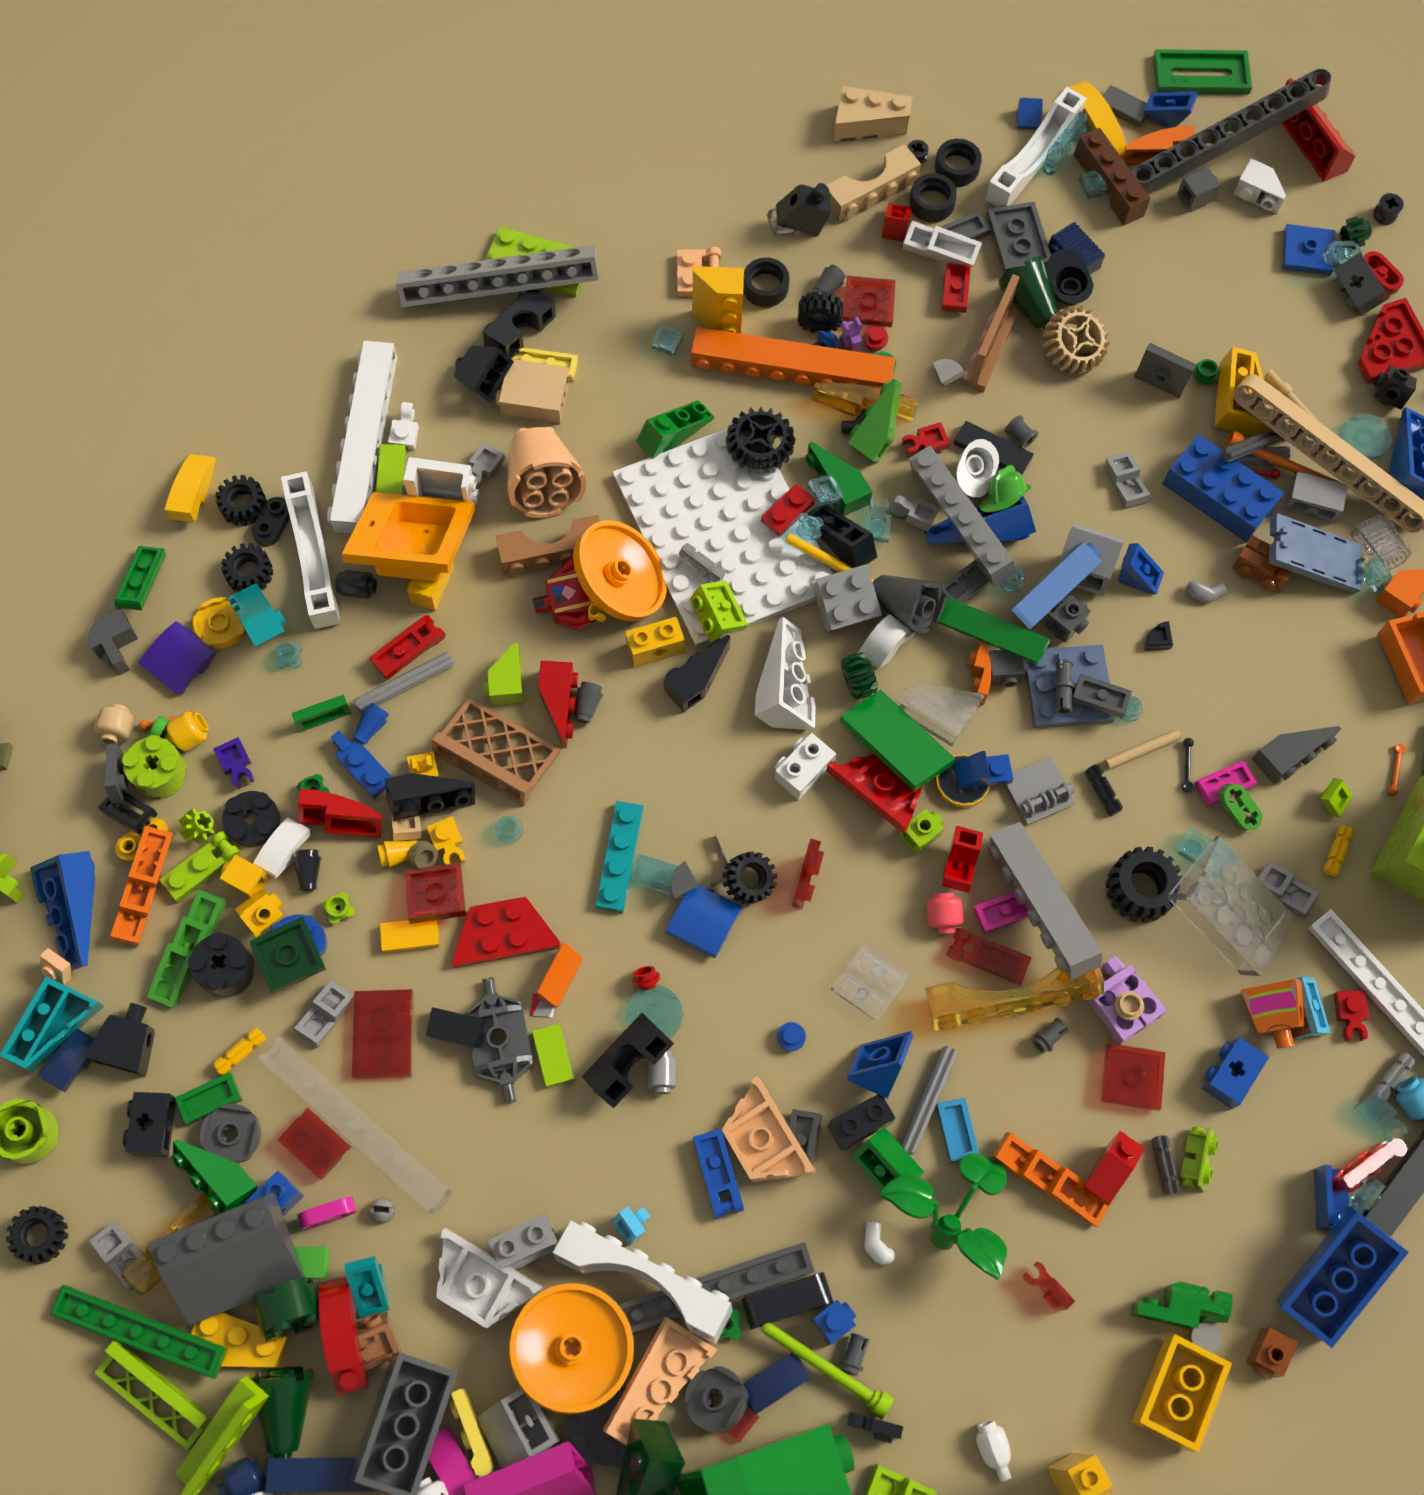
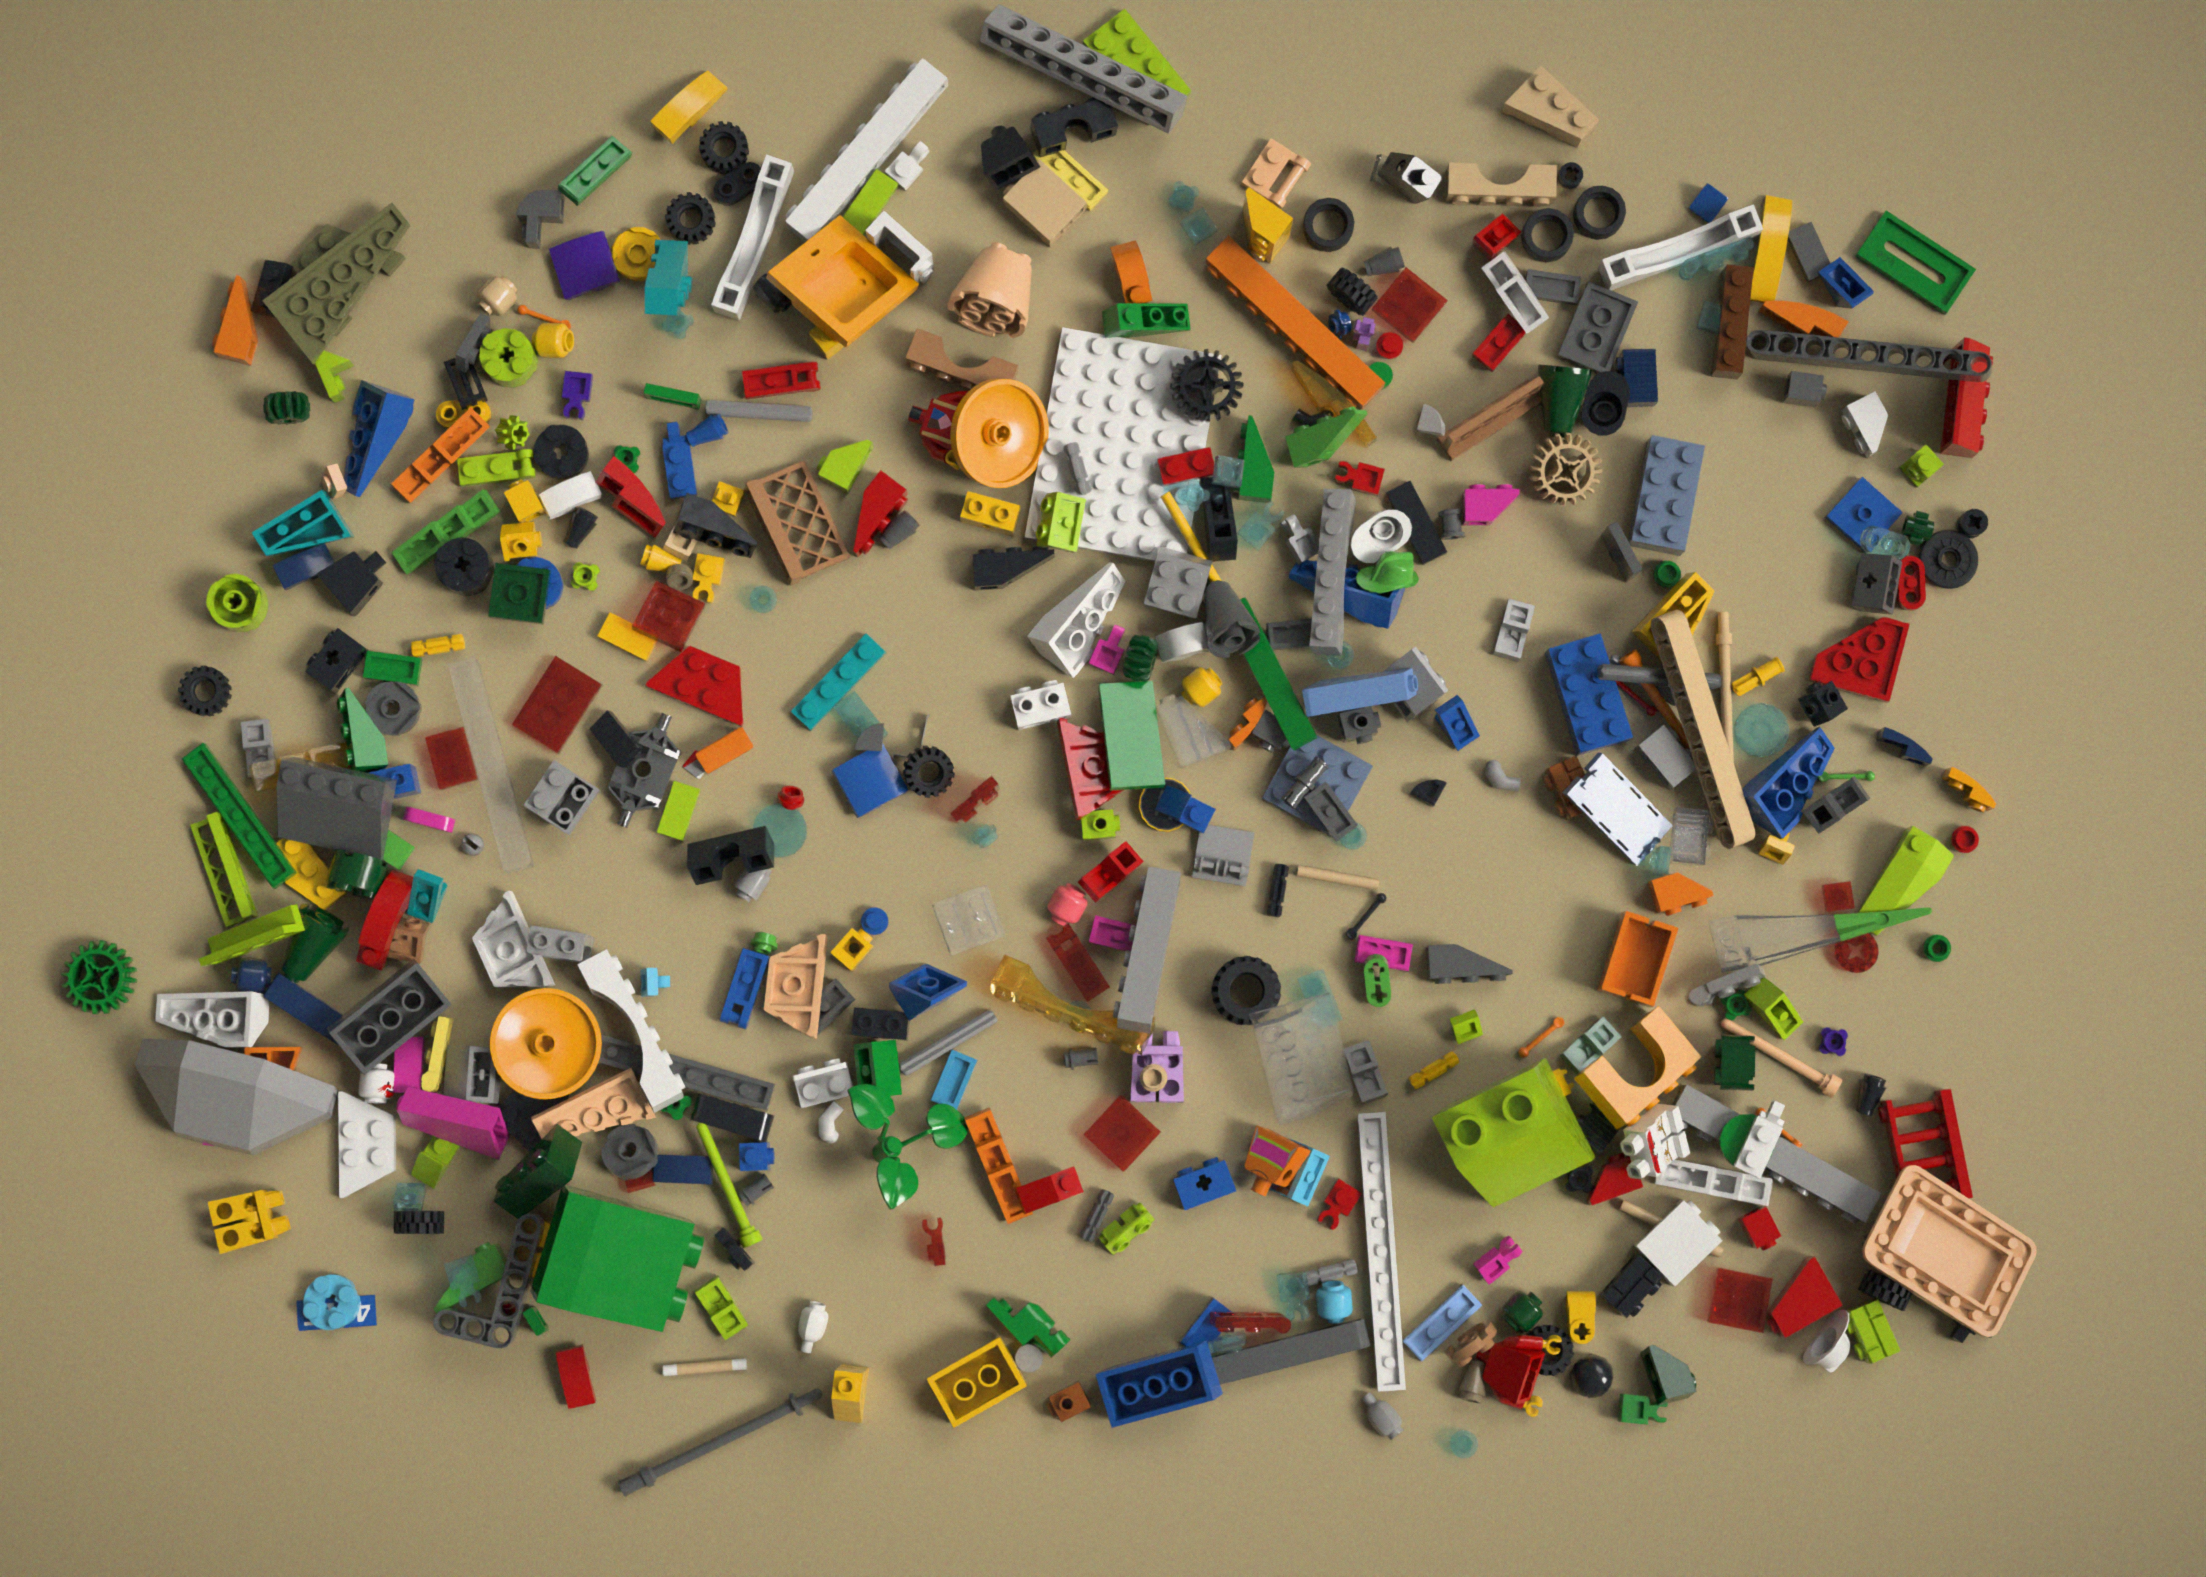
camera: 35 degrees right, 15 degrees up
(159, 726) = (530, 323): bright green tile -> none
(324, 1014) = (521, 658): light grey slope -> none
(439, 1110) = (561, 797): none -> light grey slope
(485, 462) = (956, 245): light grey plate -> none
(640, 332) = (1187, 203): none -> clear light blue plate
(640, 395) = (1131, 272): none -> orange brick
(708, 1120) = (764, 943): none -> bright green plate
(790, 1085) = (842, 949): none -> yellow brick
(828, 691) = (1107, 653): none -> dark pink plate
(834, 901) = (985, 835): none -> clear light blue plate
(847, 1212) = (823, 1084): none -> white bracket
(923, 667) = (1201, 686): none -> yellow head
(1036, 401) = (1485, 505): none -> dark pink slope
(1162, 312) = (1666, 495): none -> sand blue brick
(1322, 190) = (1921, 465): none -> lime brick
(1331, 400) = (1757, 676): none -> yellow axle
(1399, 232) = (1960, 547): none -> black wheel

